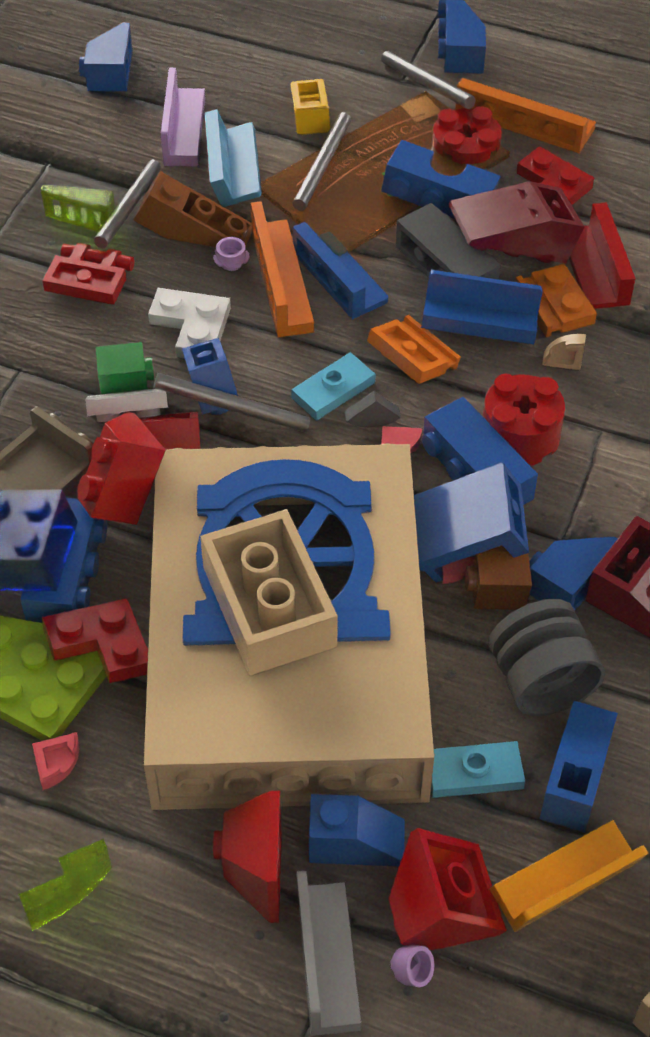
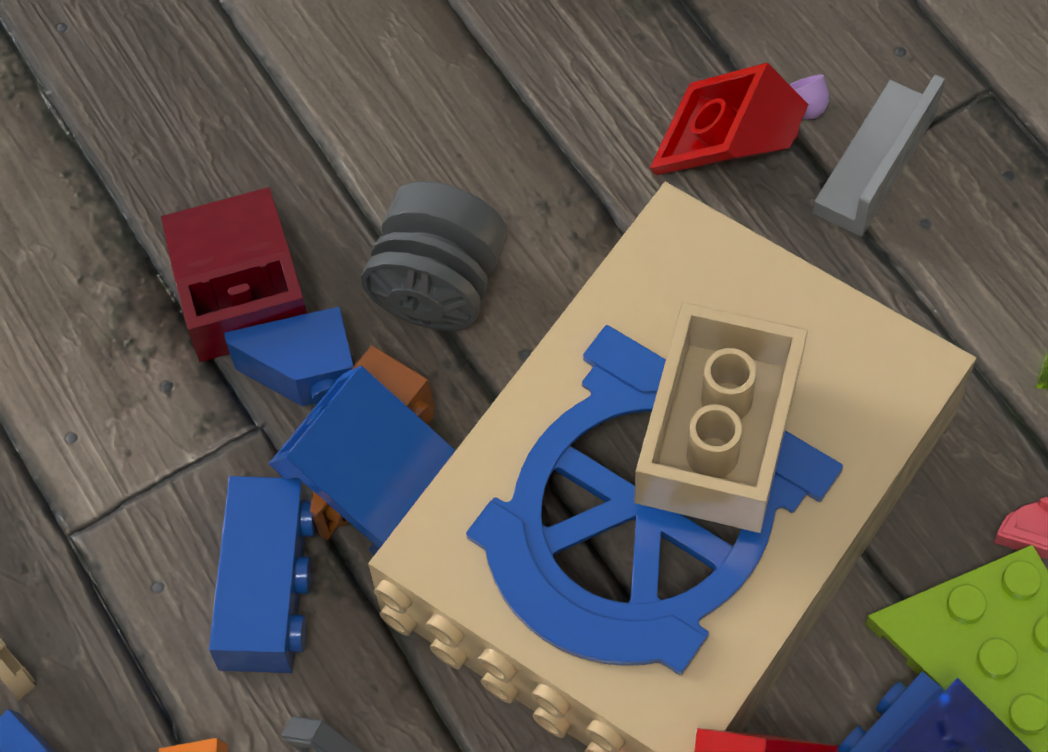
camera: 140 degrees left, 10 degrees up
(100, 628) = (890, 629): red plate -> none
(253, 851) = (893, 250): red slope -> none
(354, 832) = (785, 223): blue slope -> none
(402, 435) = (330, 678): coral tile -> none
(477, 769) = (578, 226): medium azure plate -> none
(526, 414) = (128, 576): red brick -> none
(565, 875) = (598, 70): light orange panel -> none
(578, 766) = (506, 143): blue slope -> none

